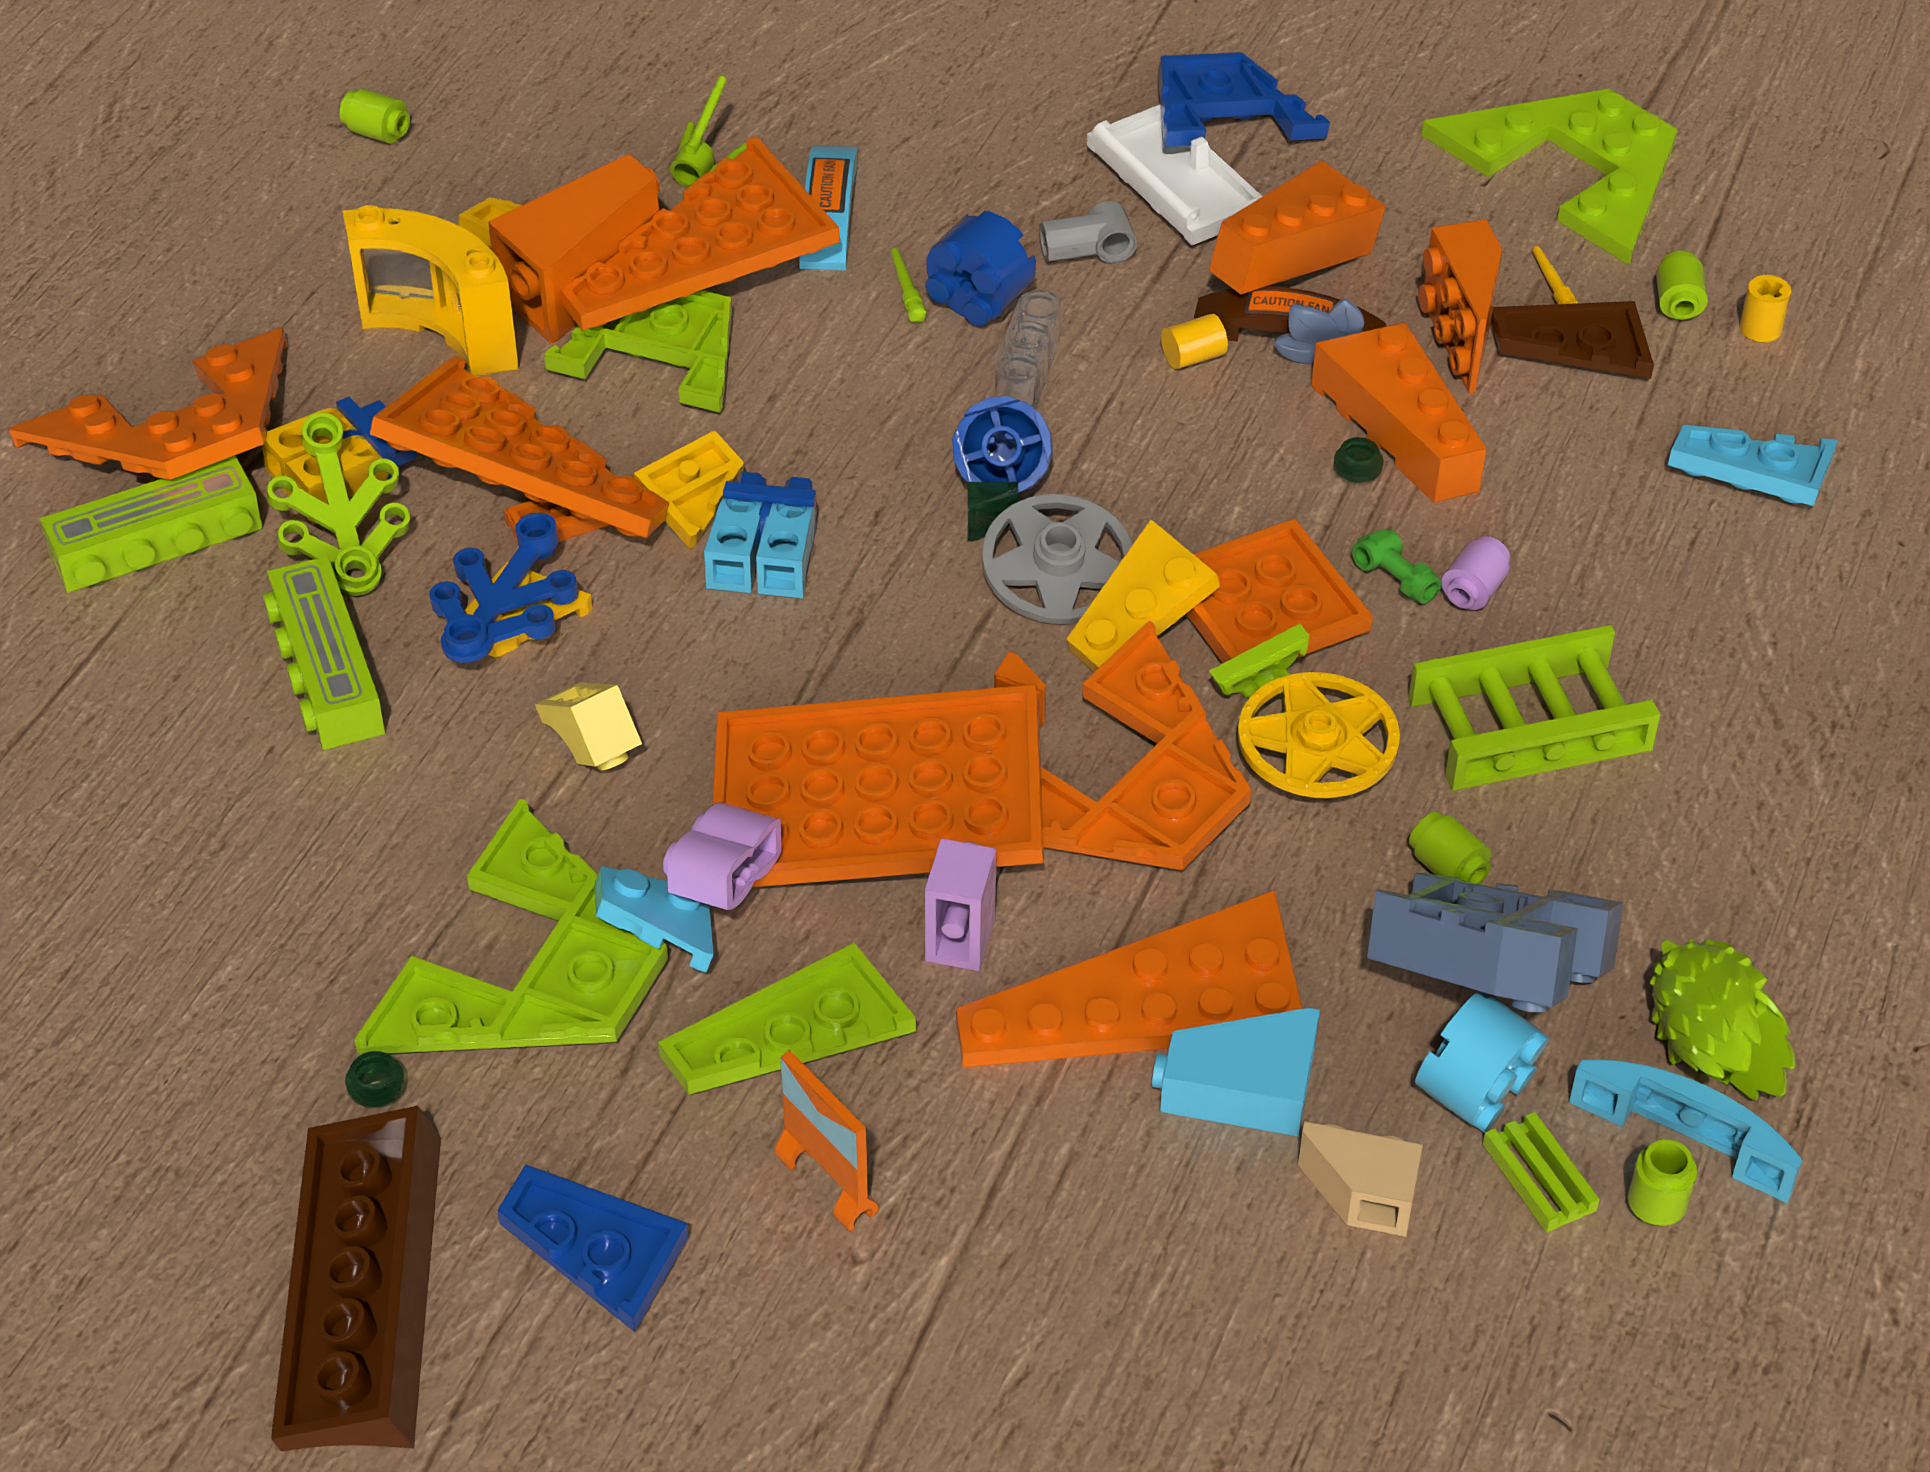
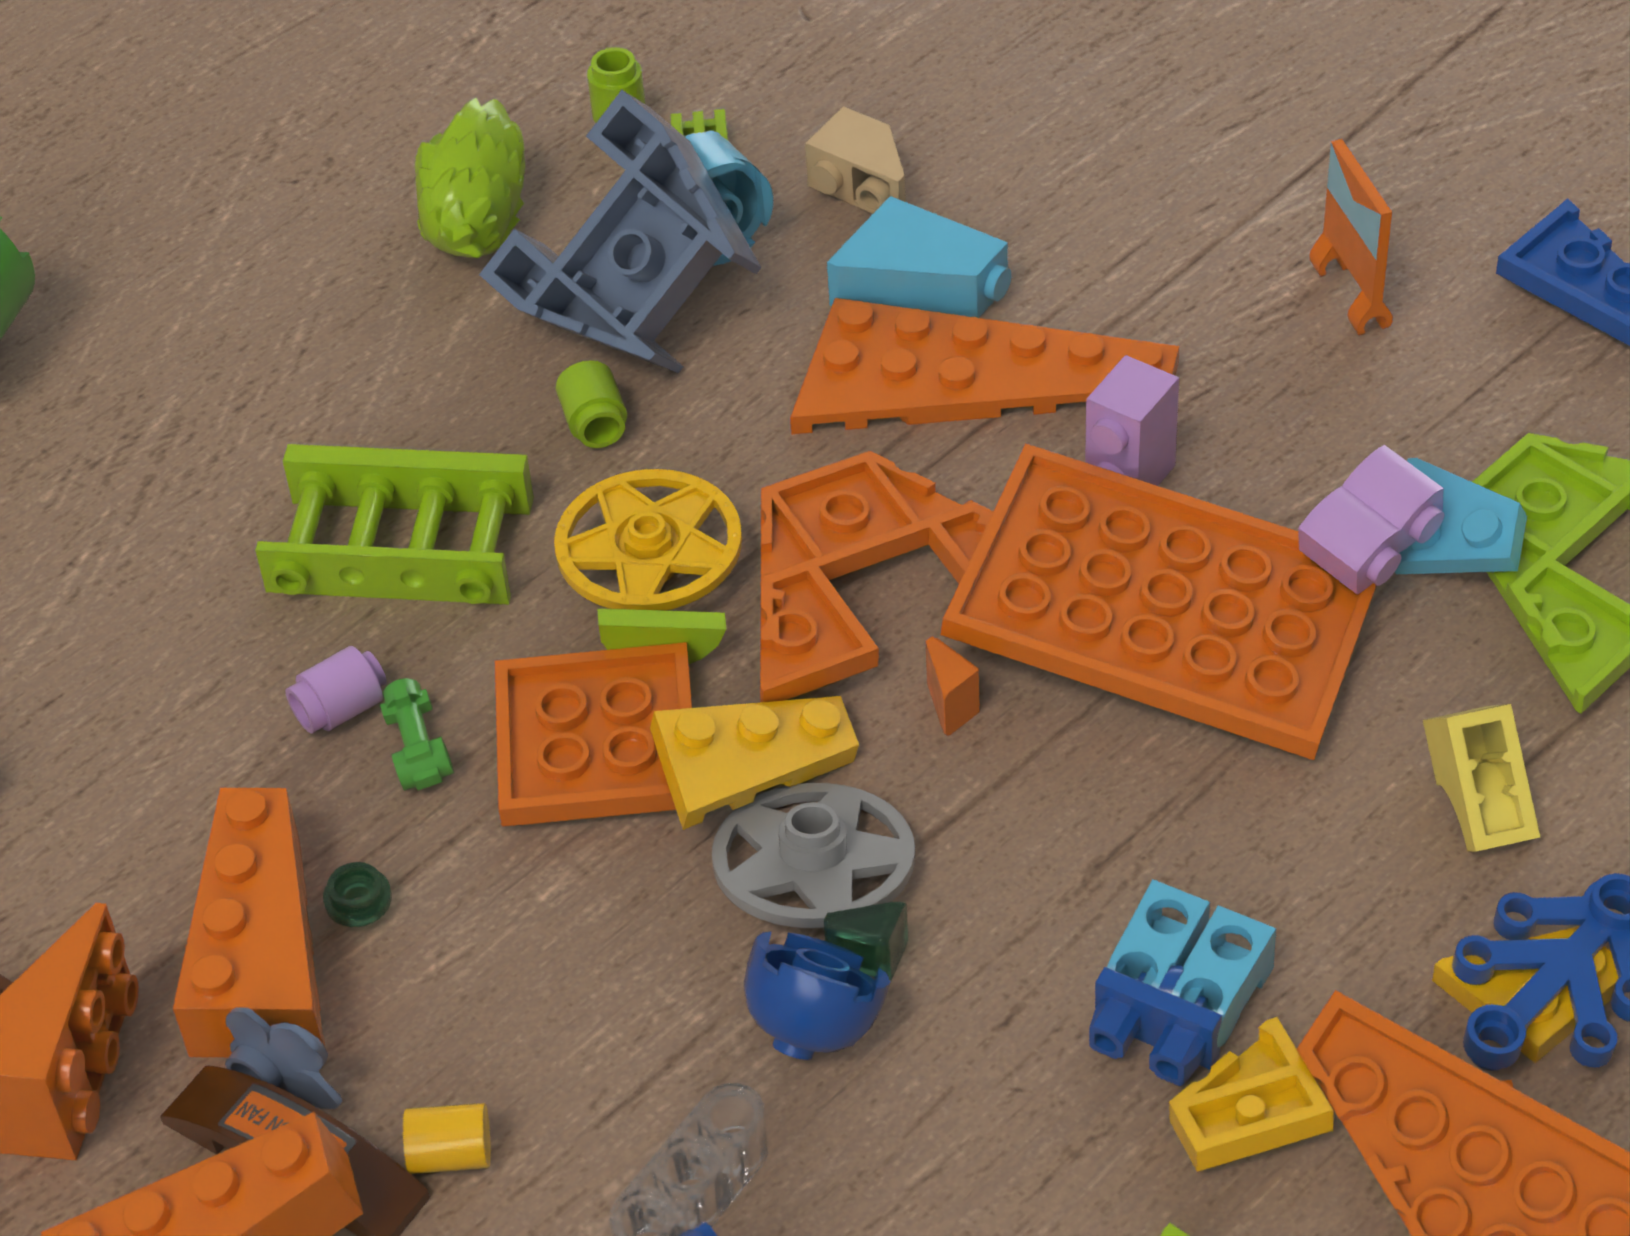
camera: 155 degrees left, 0 degrees up
(812, 1013) = (1317, 419): lime wing -> none
(1695, 1110) = (576, 173): medium azure slope -> none

